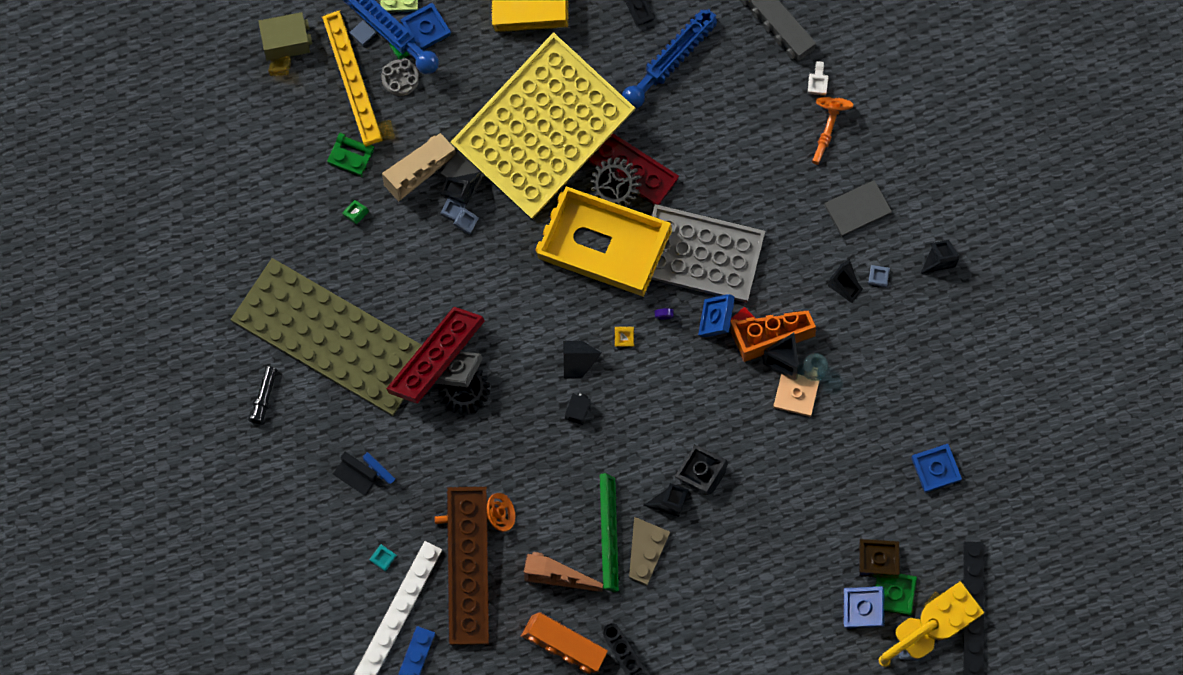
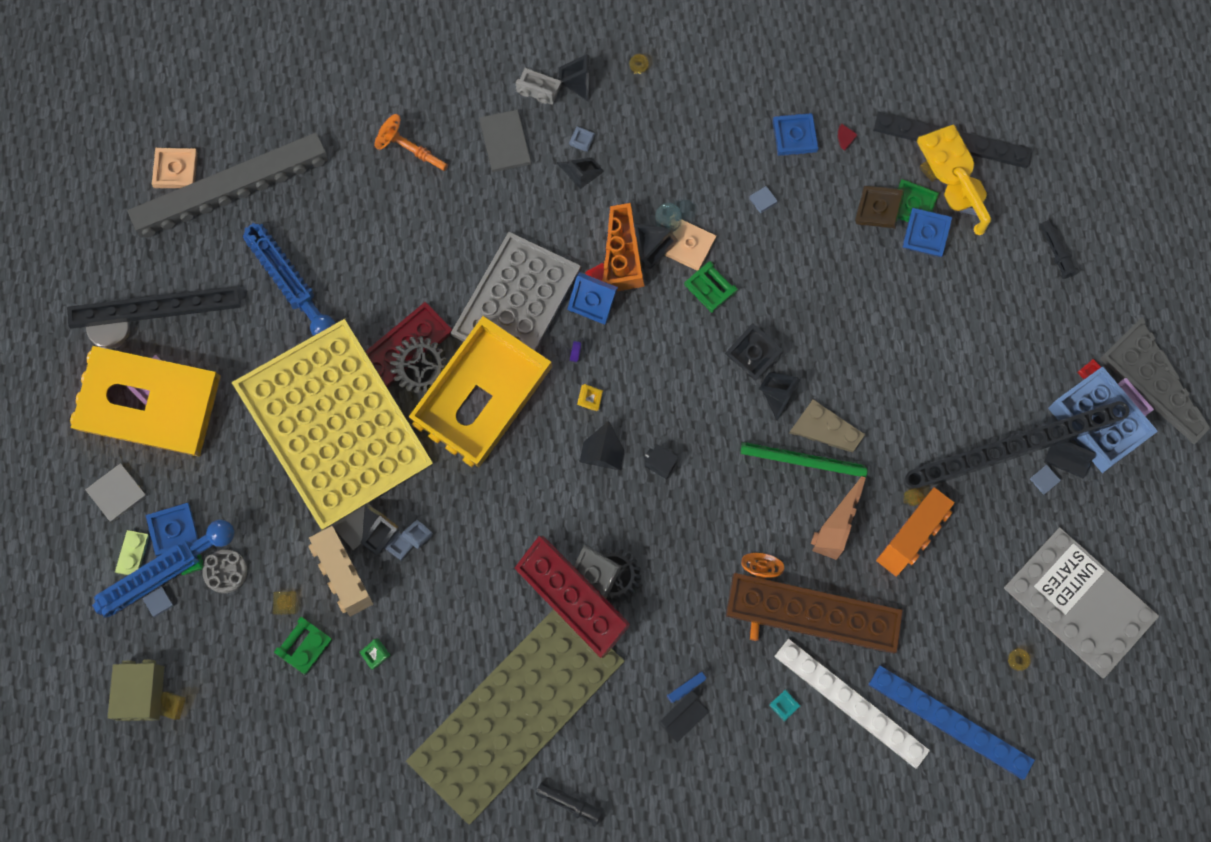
camera: 80 degrees left, 0 degrees up
(352, 78) = (210, 624): yellow tile -> none
(596, 636) = (913, 497): none -> clear yellow plate
(752, 418) = (706, 290): none -> green plate
(818, 82) = (357, 144): white plate -> none
(860, 451) = (763, 199): none -> sand blue tile
(921, 224) = (538, 86): none -> light grey bracket
(948, 516) = (845, 136): none -> dark red tile
(972, 304) = (638, 58): none -> clear yellow plate

